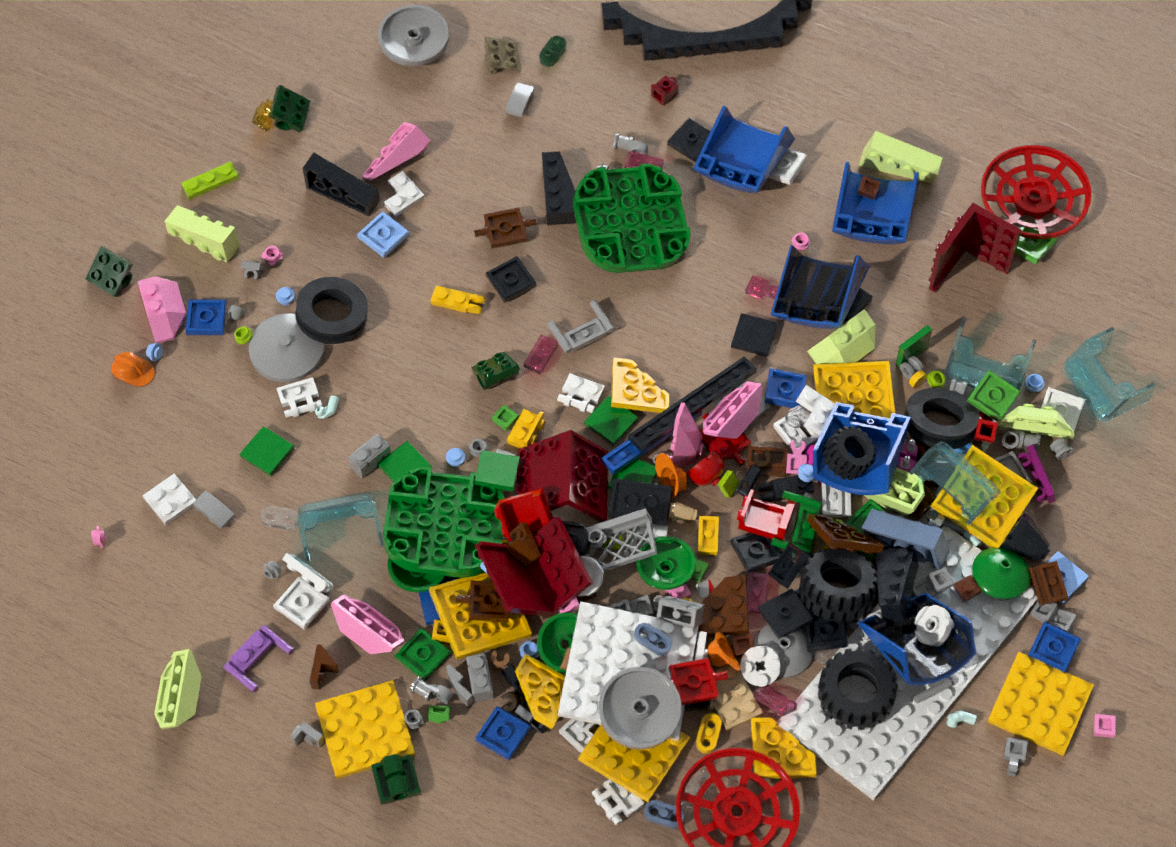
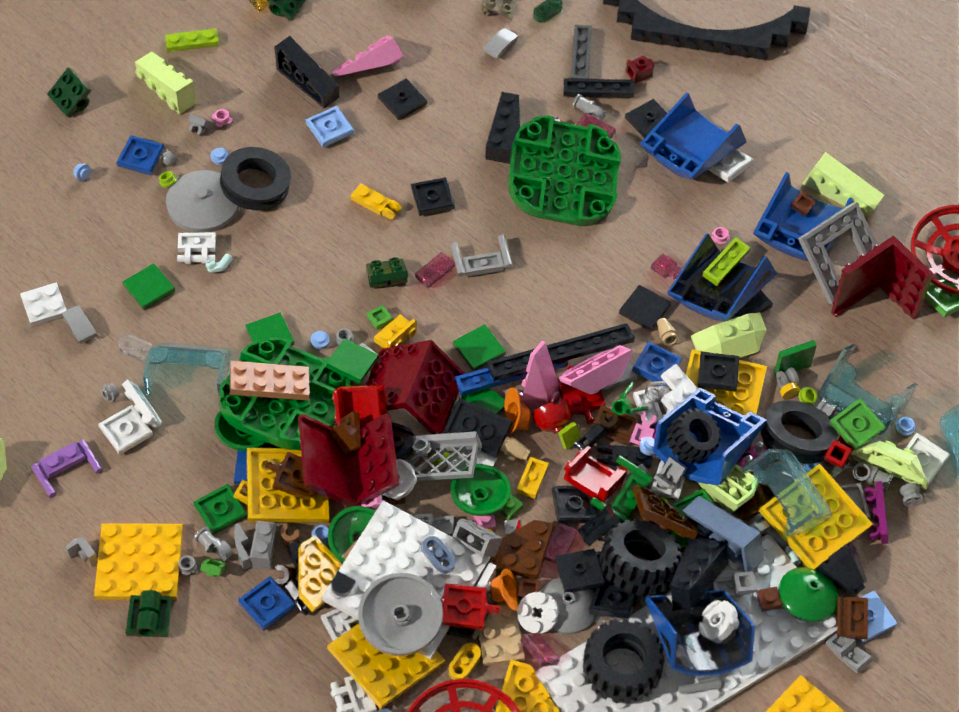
camera: 15 degrees right, 5 degrees down
(132, 369) = (57, 182): orange piece -> none
(163, 307) = (104, 136): bright pink wedge -> none
(321, 664) = (119, 490): reddish brown slope -> none
(366, 625) = (175, 465): bright pink wedge -> none
(368, 455) = (238, 315): light grey brick -> none
(407, 194) = (365, 97): white plate -> none
(427, 514) = (269, 380): none -> plate
(443, 185) = (402, 99): none -> black plate
(505, 227) = (444, 150): reddish brown plate -> none
(573, 695) = (342, 584): none -> black tile
(583, 389) = (463, 312): white plate -> none
(602, 89) = (581, 51): none -> dark grey plate
(631, 120) = (598, 87): none -> black plate
(635, 389) = (511, 324): yellow plate -> none
(771, 440) = (623, 404): none -> green plant
(783, 353) = (667, 333): none -> tan cone
(816, 266) = (726, 261): none -> lime plate
(837, 494) = (670, 473): none -> light grey bracket
(846, 380) = (718, 371): none -> black plate
(896, 226) = (813, 244): none -> light grey plate
(1054, 647) = (839, 681): blue plate -> none

